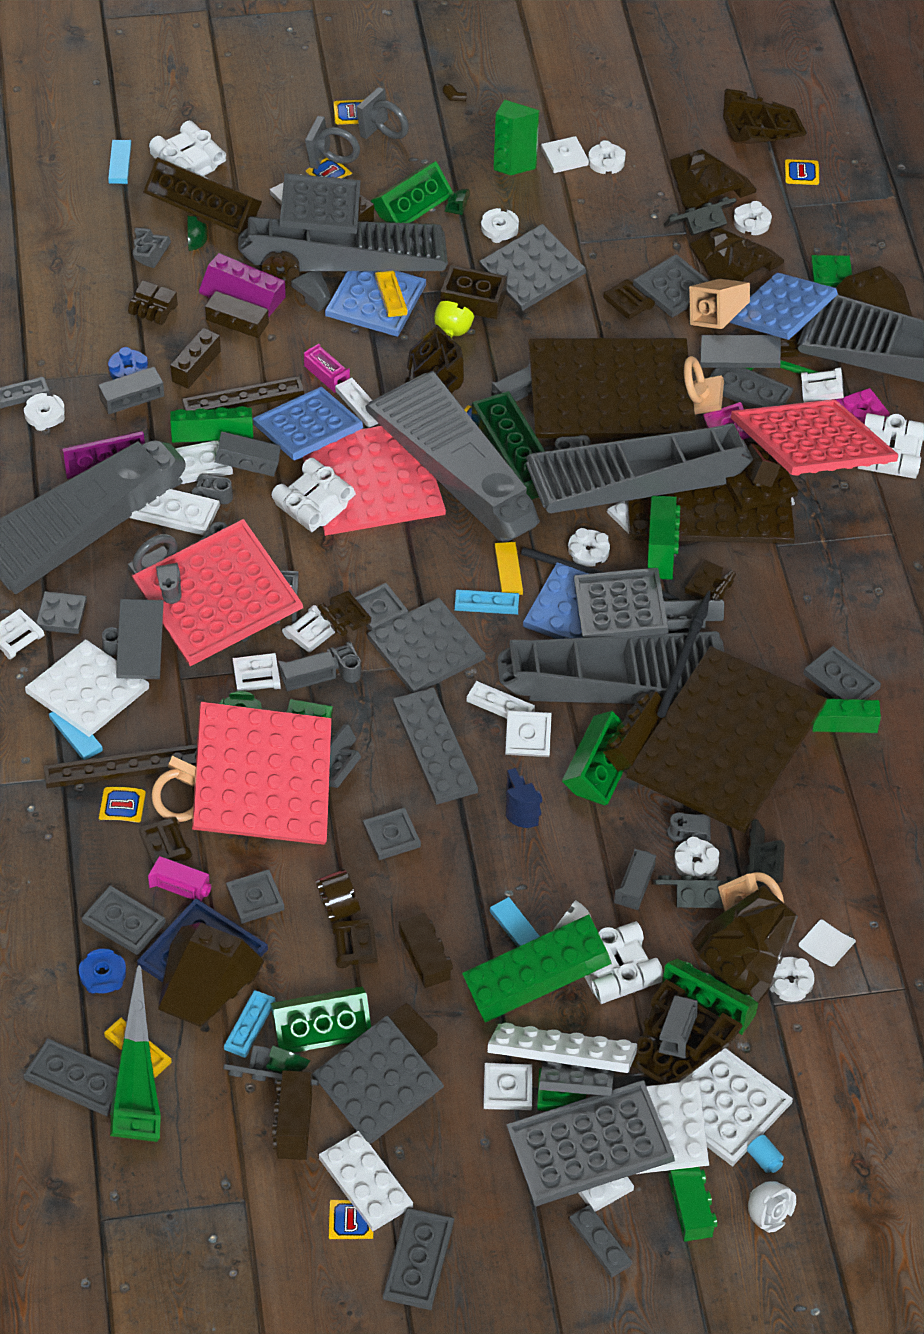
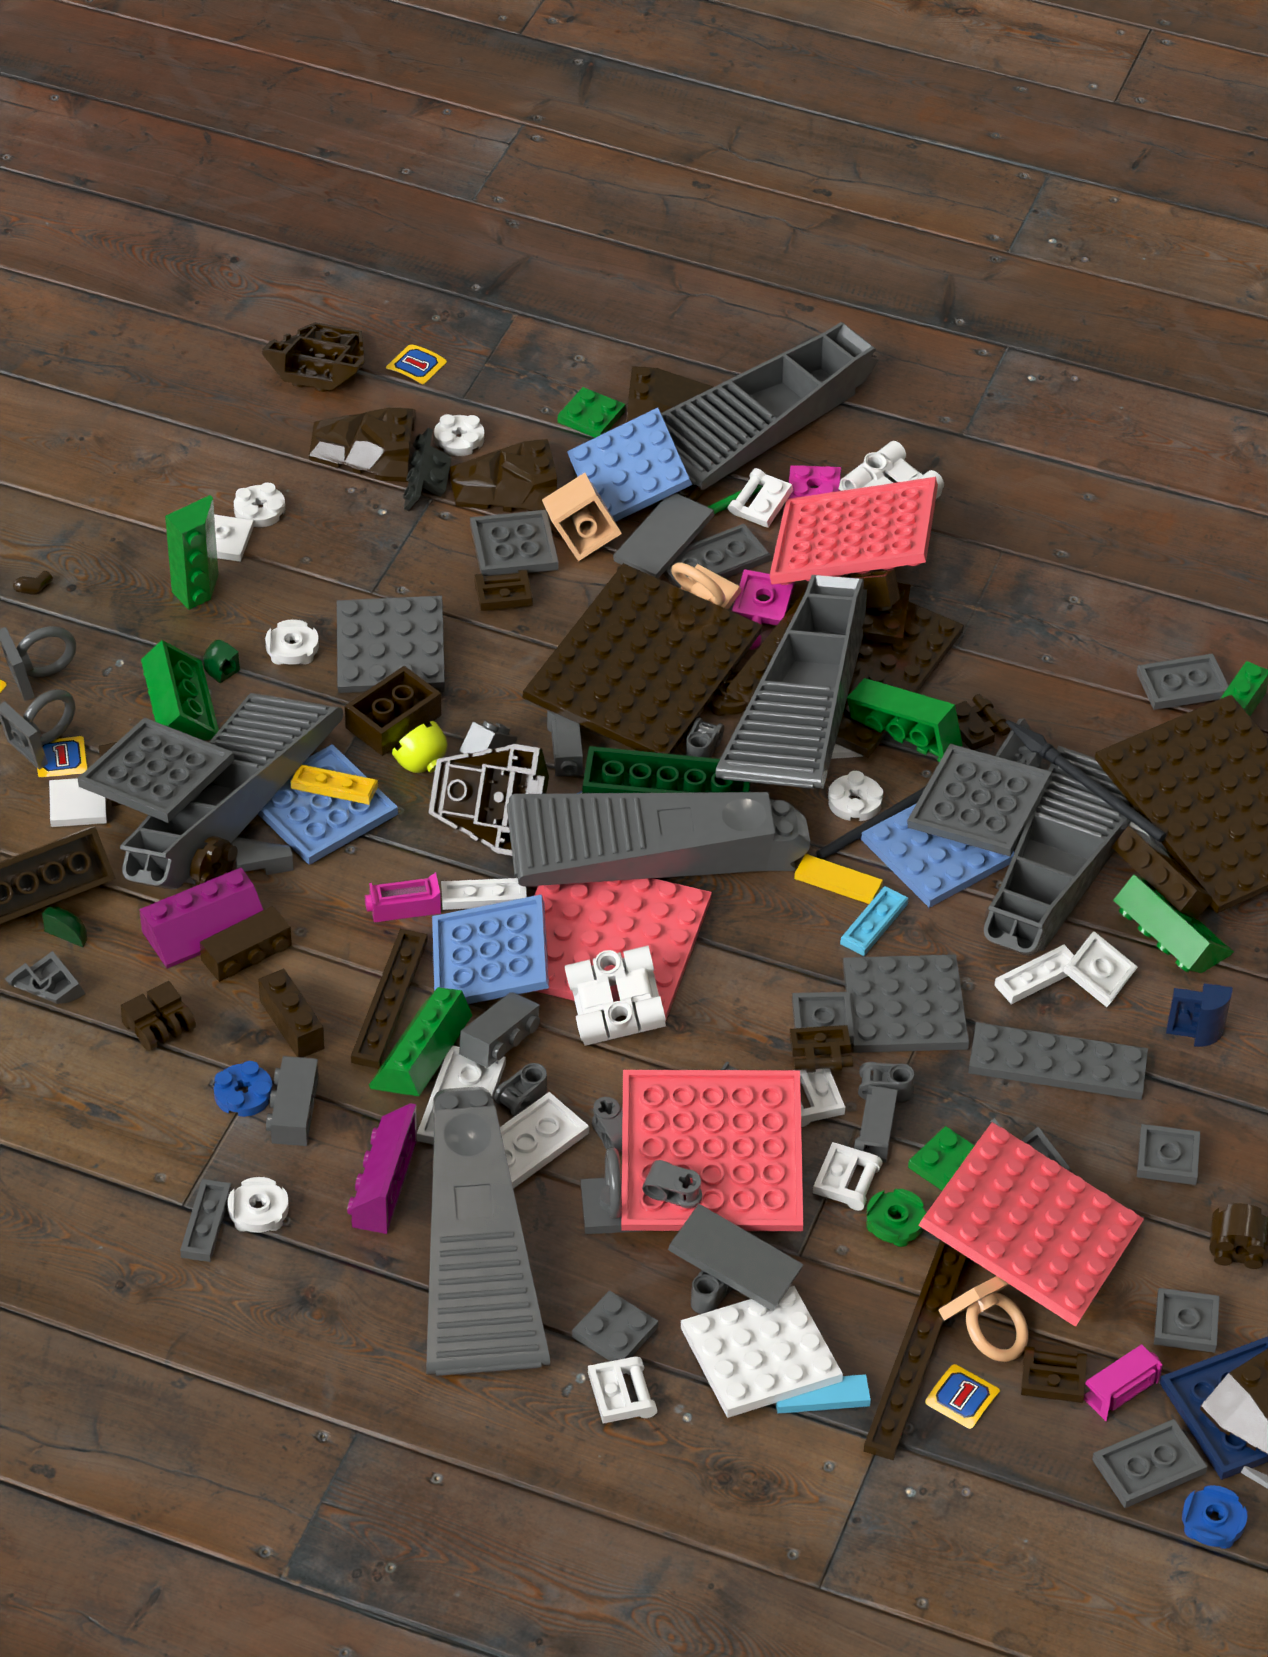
camera: 60 degrees left, 5 degrees down
(486, 348) = (487, 736): none -> slope

